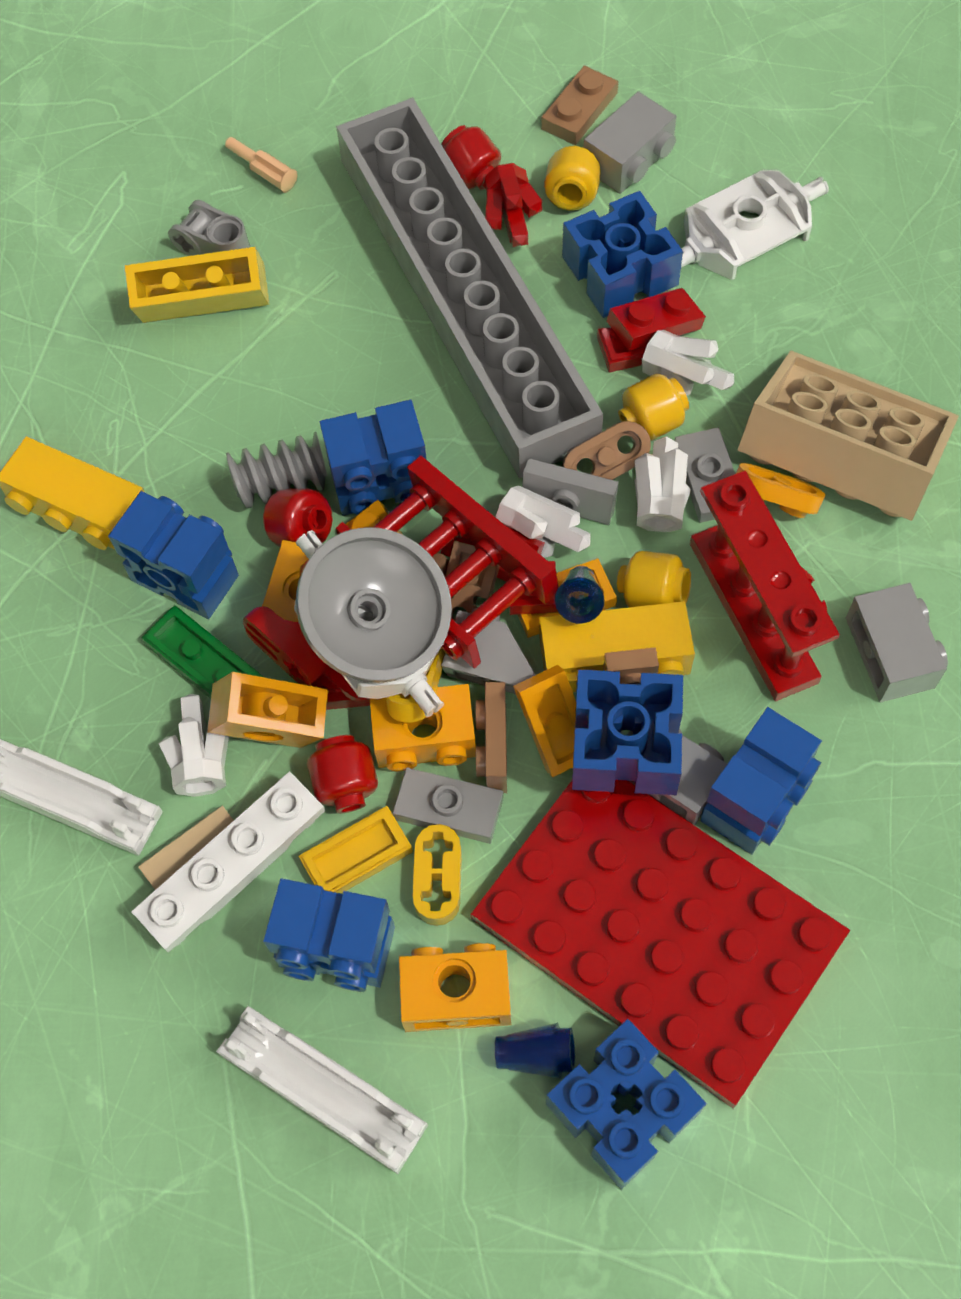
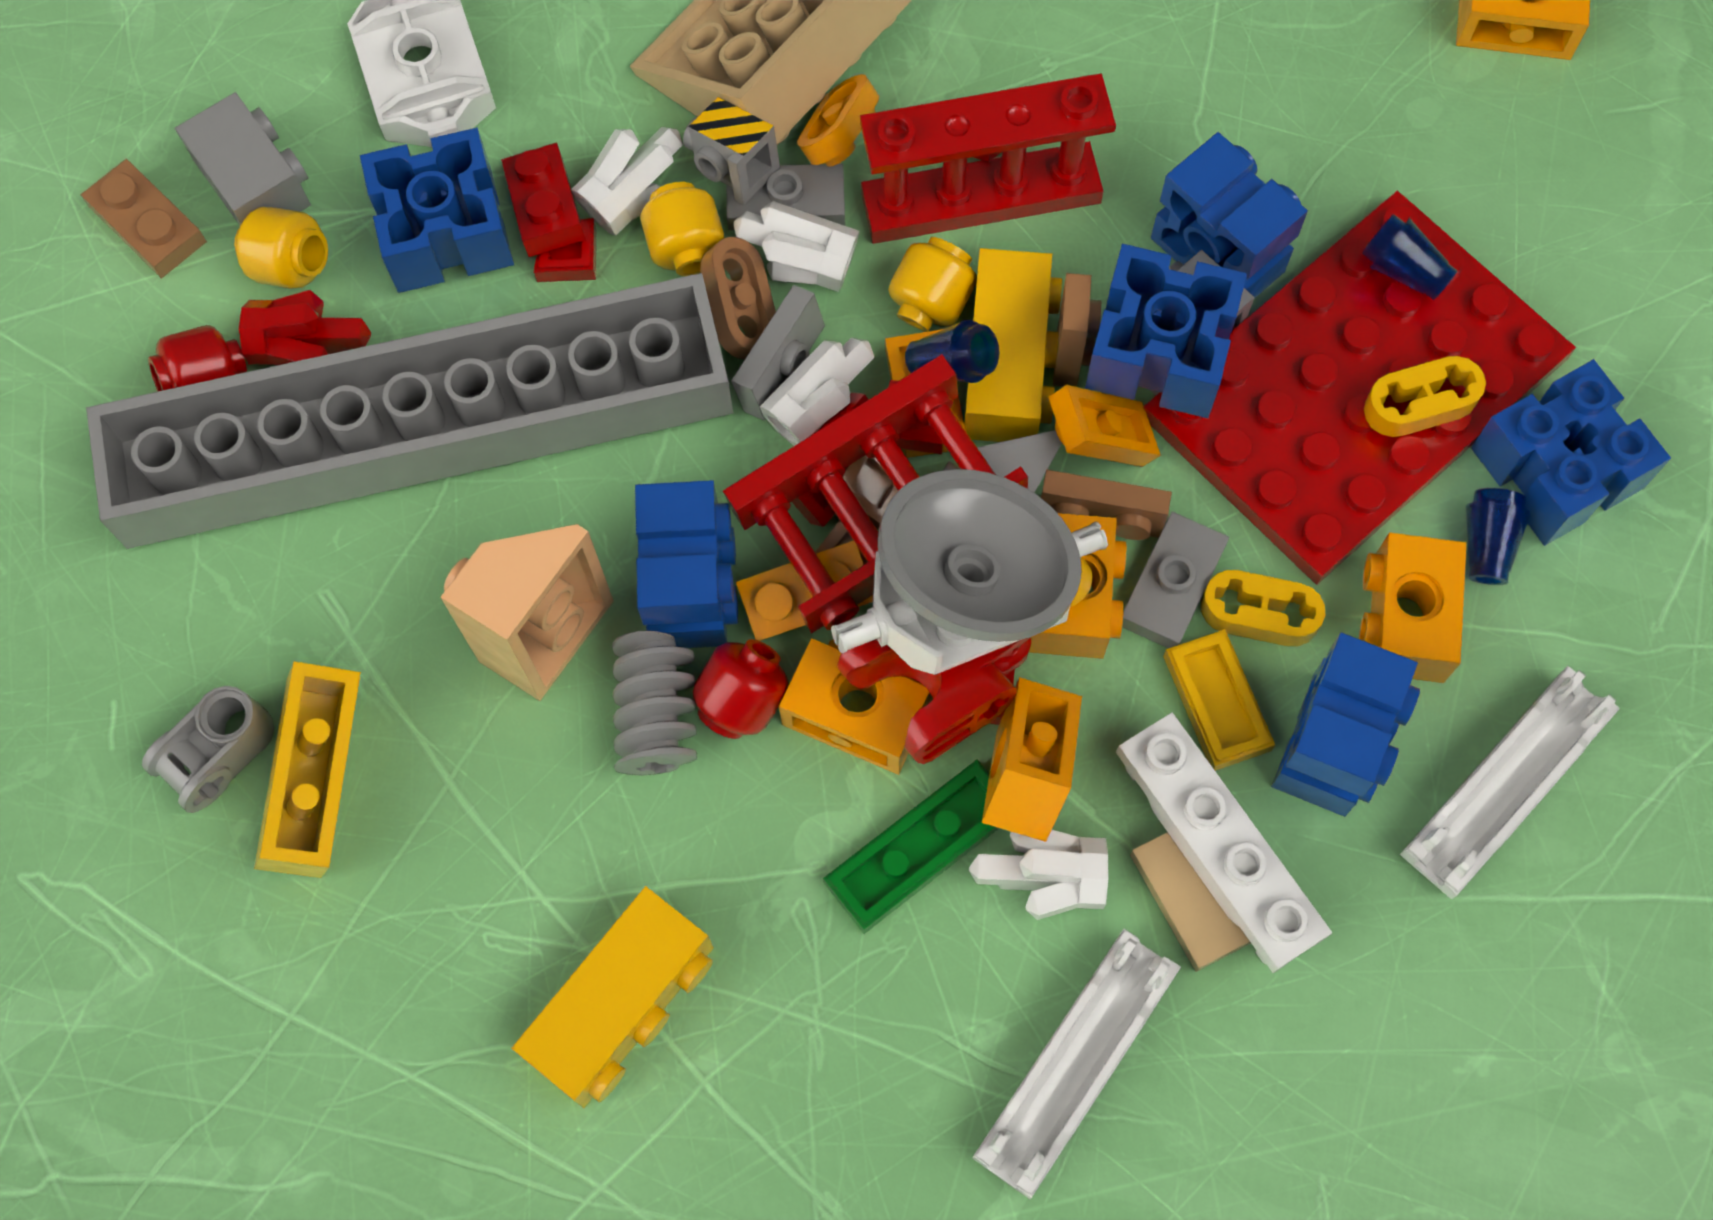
camera: 80 degrees left, 5 degrees up
(175, 553) = (767, 848): blue brick -> none
(265, 165) = (93, 658): light nougat axle -> none
(310, 360) = (529, 603): none -> light nougat slope
(342, 773) = (1122, 689): red head -> none
(652, 959) = (1420, 384): none -> yellow beam
(722, 419) = (733, 148): none -> light grey brick
(770, 933) = (1409, 257): none -> clear blue cone
(896, 642) = (1067, 45): light grey brick -> none

